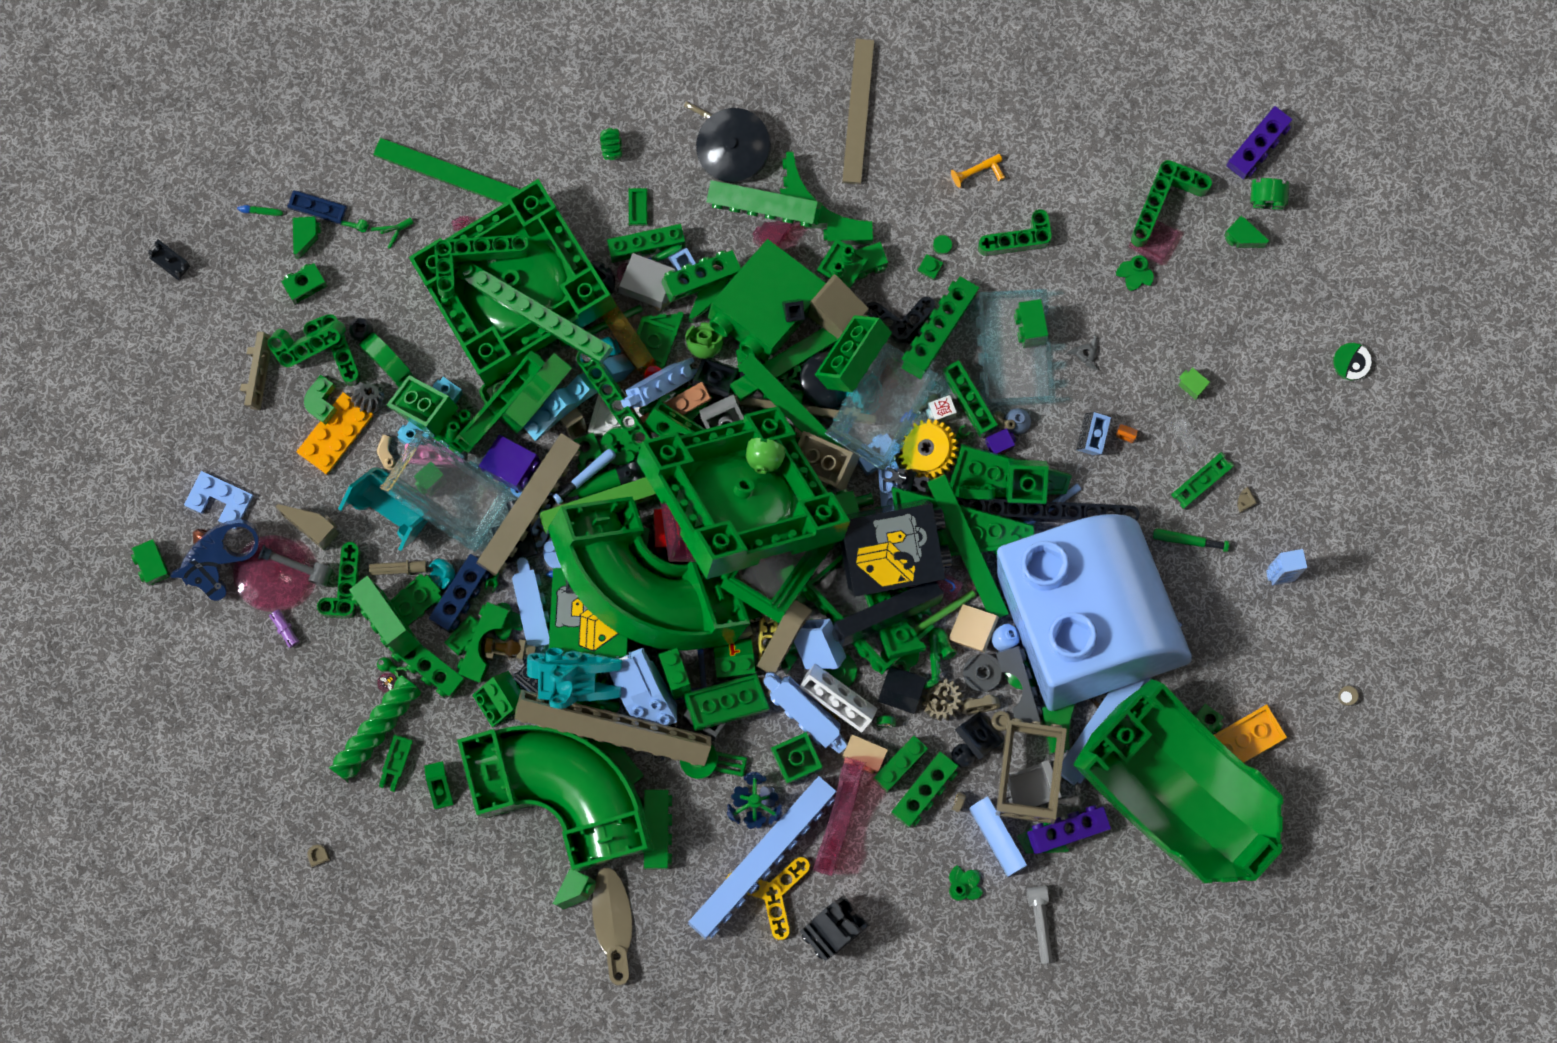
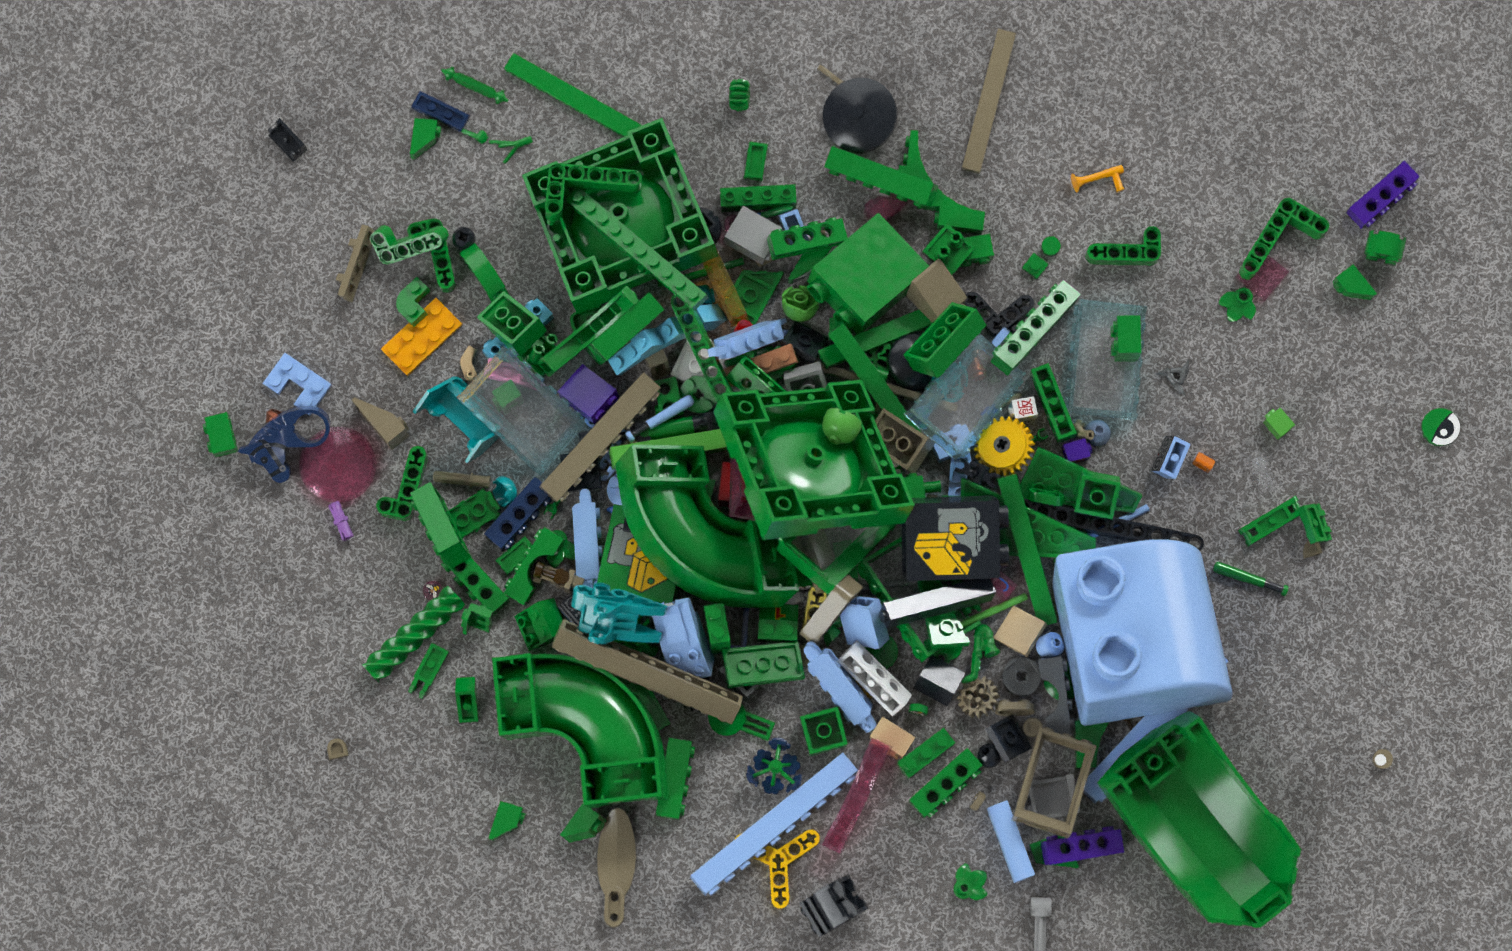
camera: 10 degrees right, 0 degrees up
(260, 210) = (383, 105): green piece -> none
(315, 283) = (407, 192): green brick -> none
(318, 574) = (383, 472): dark grey piece -> none
(346, 175) = (475, 85): none -> green wheel
(367, 397) = (459, 306): dark grey gear -> none
(388, 666) = (436, 574): green arm -> none
(435, 701) = (477, 617): none -> green bracket
(460, 222) = (578, 149): clear pink tile -> none
(497, 897) = (506, 820): none -> green slope
(793, 310) = (893, 287): black slope -> none
(907, 342) = (1000, 337): none -> light blue tile
(1206, 710) = (1238, 750): green brick -> none
(1245, 475) = (1315, 523): none -> green plate
(1252, 734) = (1280, 781): light orange plate -> none
(1287, 567) = (1342, 621): light blue brick -> none

